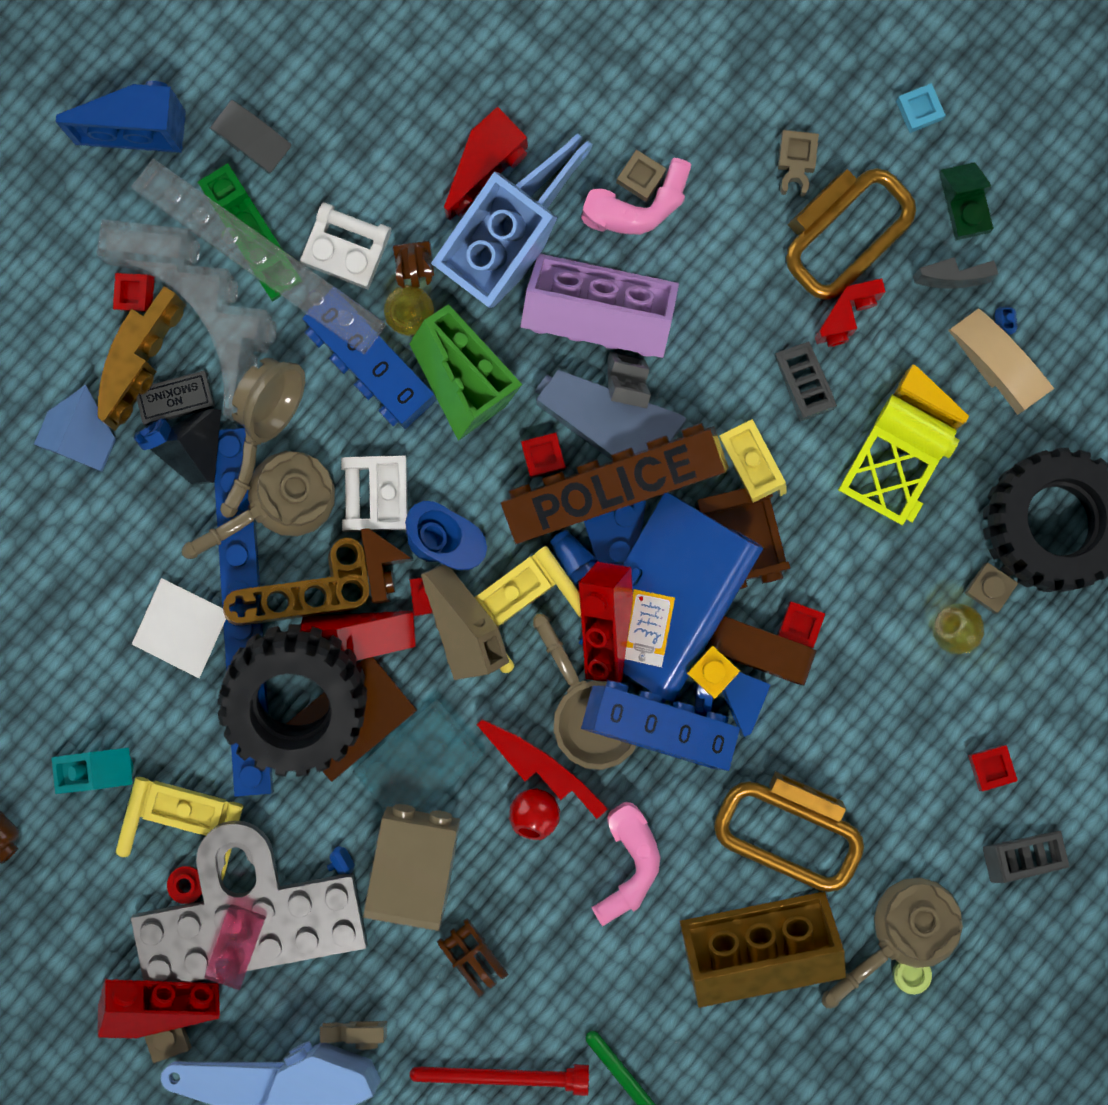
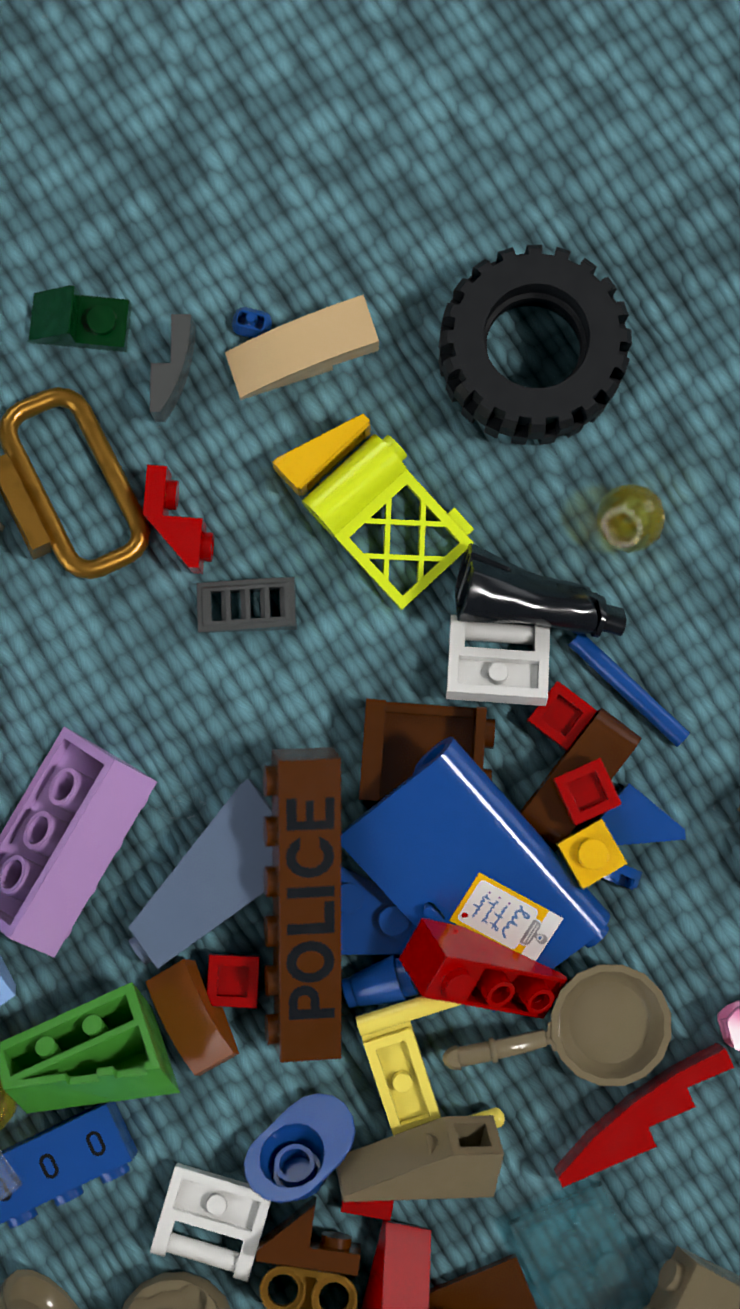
camera: 75 degrees left, 0 degrees up
(506, 435) = (190, 1020): none -> dark orange slope
(534, 814) = (700, 1145): red piece -> none
(628, 379) = (171, 838): dark grey slope -> none
(660, 727) = (641, 947): blue brick -> none
(753, 461) = (332, 711): light yellow panel -> none
(755, 655) = (587, 791): none -> red plate
(817, 571) = (498, 673): none -> white plate
(835, 667) = (629, 689): none -> blue bar
(875, 558) = (501, 592): none -> black piece
(991, 588) = (588, 457): dark tan plate -> none

